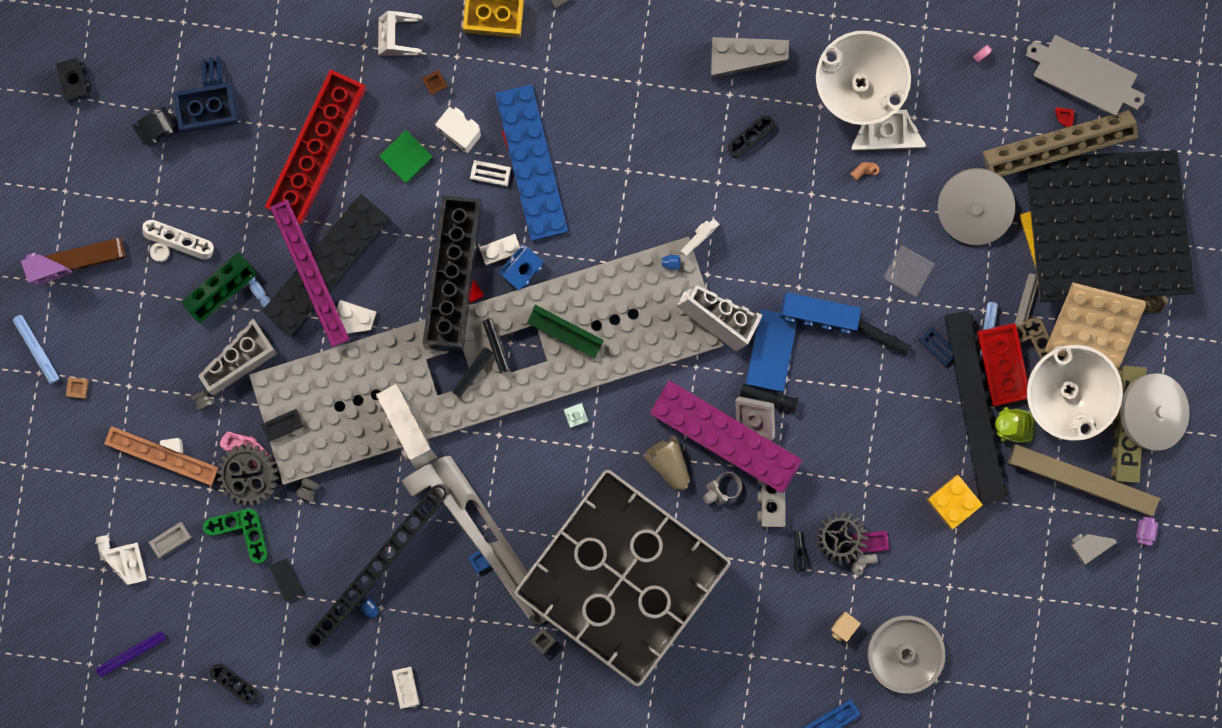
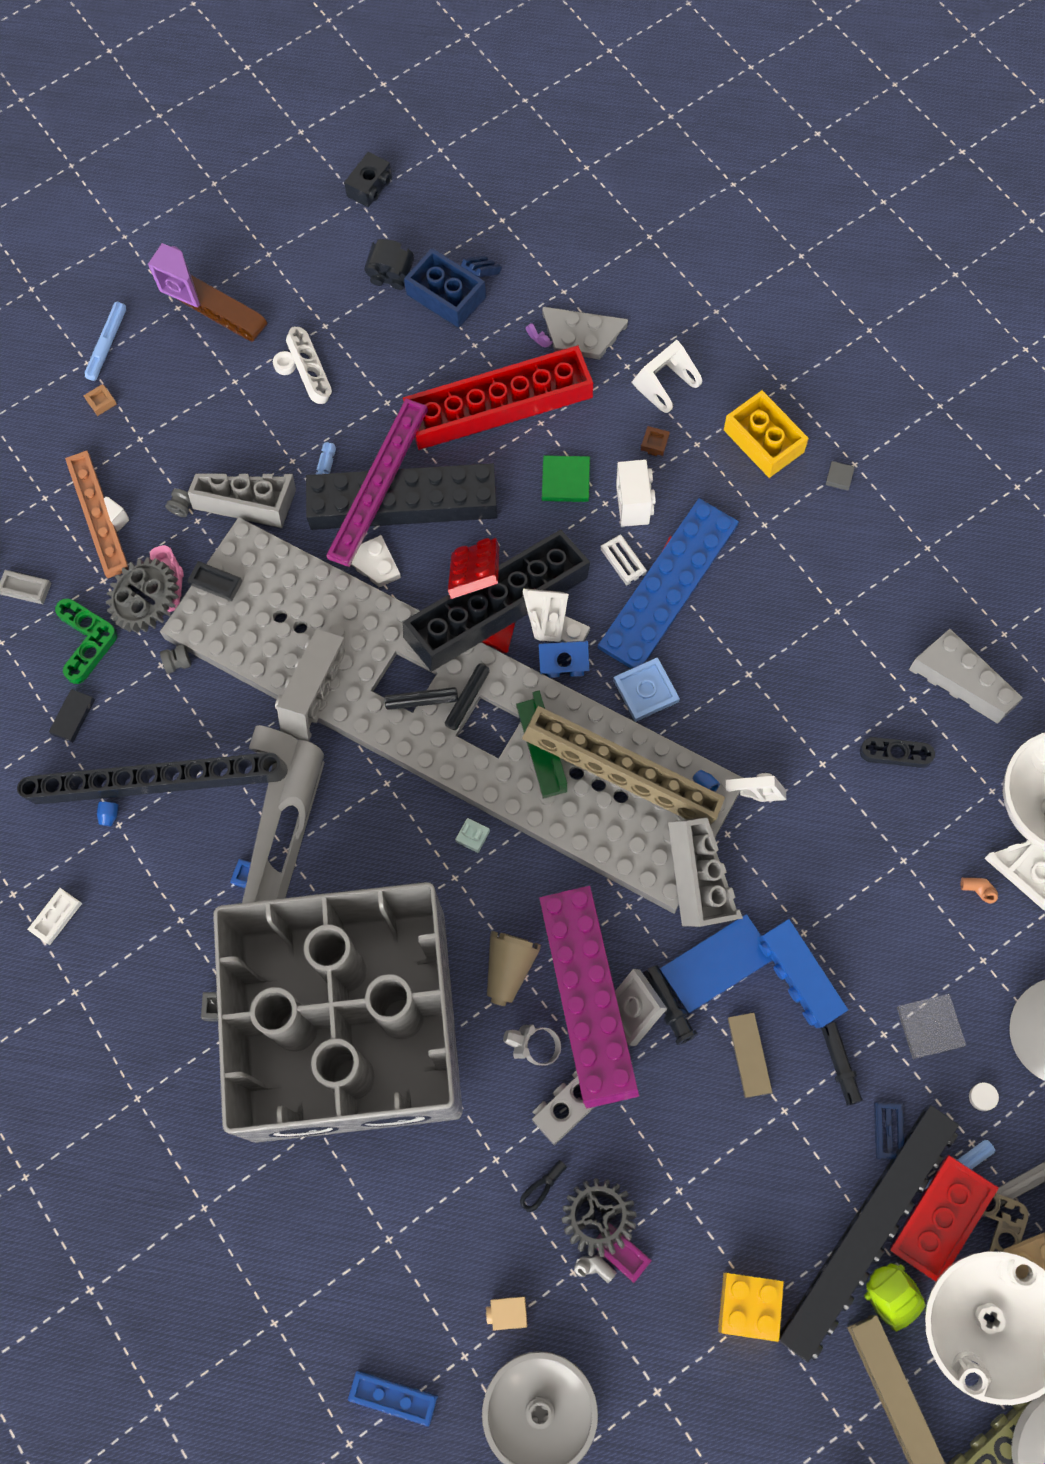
camera: 50 degrees right, 15 degrees down
(219, 288) = (295, 428): dark green brick -> none
(292, 81) = (540, 338): none -> medium lavender piece
(315, 52) = (588, 331): none -> light grey wing
(421, 269) = (473, 567): none -> red plate
(488, 254) = (546, 613): none -> white wing
(583, 238) = (646, 689): none -> light blue plate
(624, 302) = (622, 766): none -> dark tan brick
(834, 380) = (749, 1055): none -> dark tan tile
(967, 281) = (983, 1096): none -> white tile

